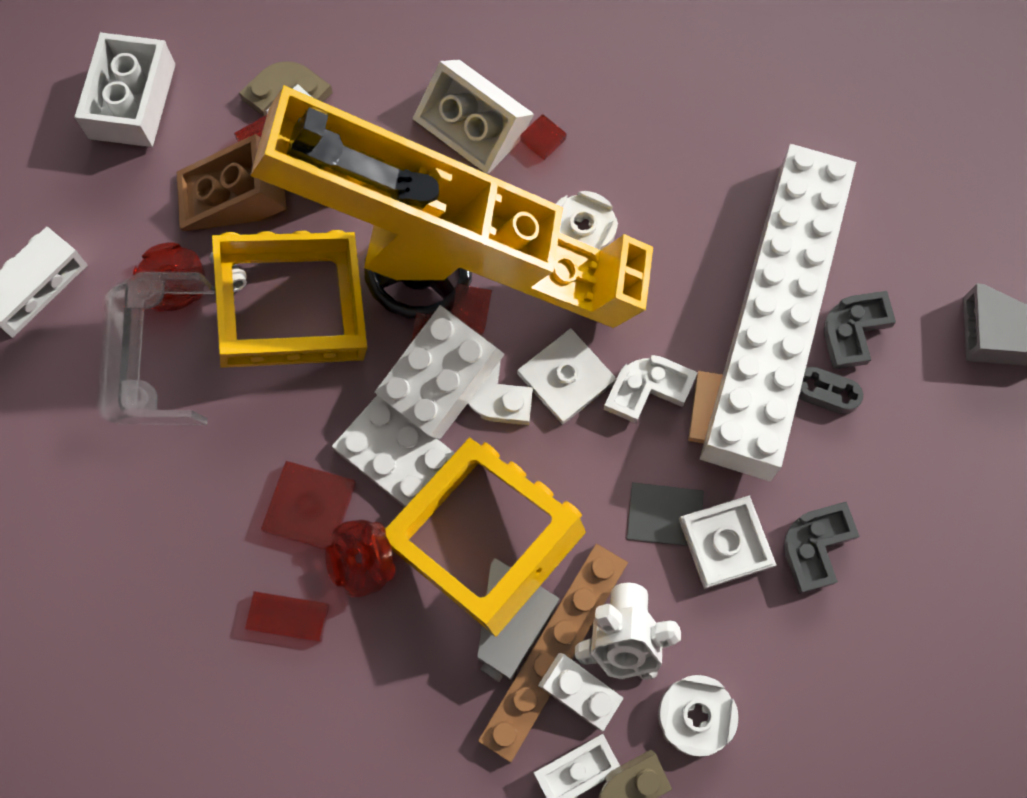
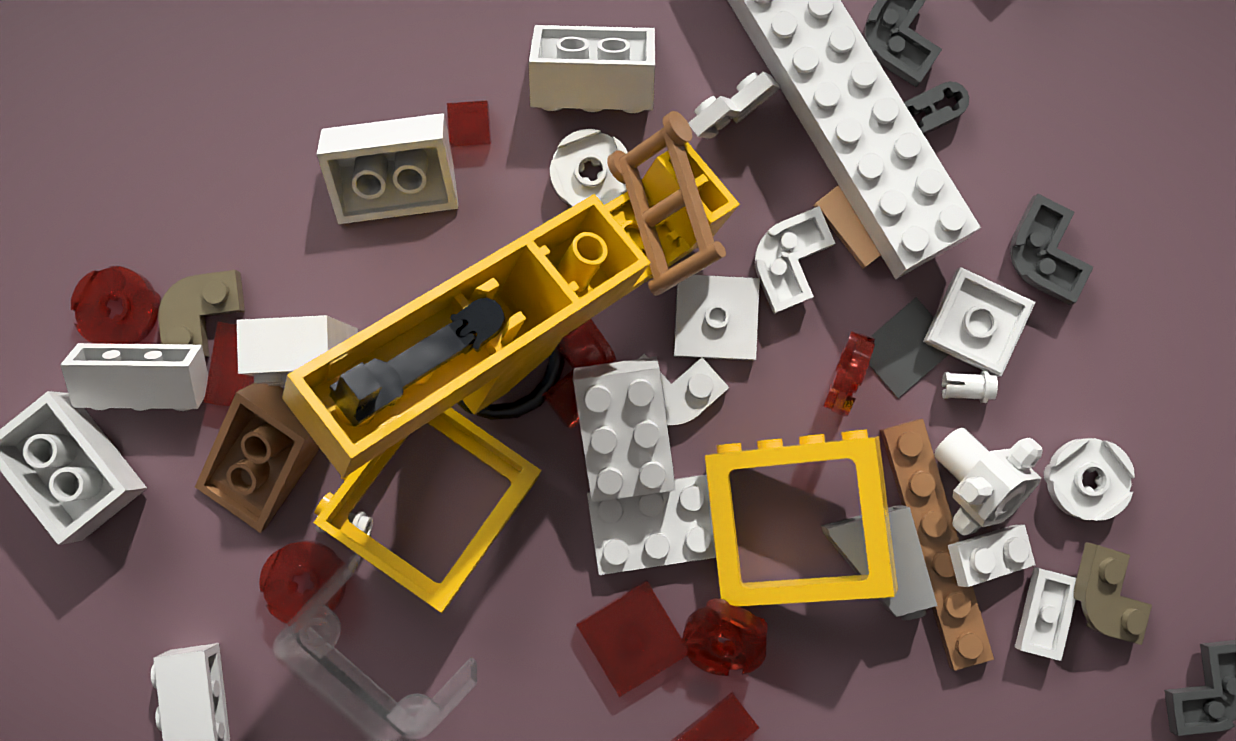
camera: 45 degrees left, 15 degrees up
(216, 83) = (136, 376): none -> white brick
(254, 58) = (112, 283): none -> clear red plate
(601, 232) = (624, 168): none -> medium nougat piece
(606, 481) = (850, 373): none -> clear red plate
(644, 172) = (592, 68): none -> white slope
(679, 574) = (970, 386): none -> white pin
(689, 258) = (716, 113): none -> white plate

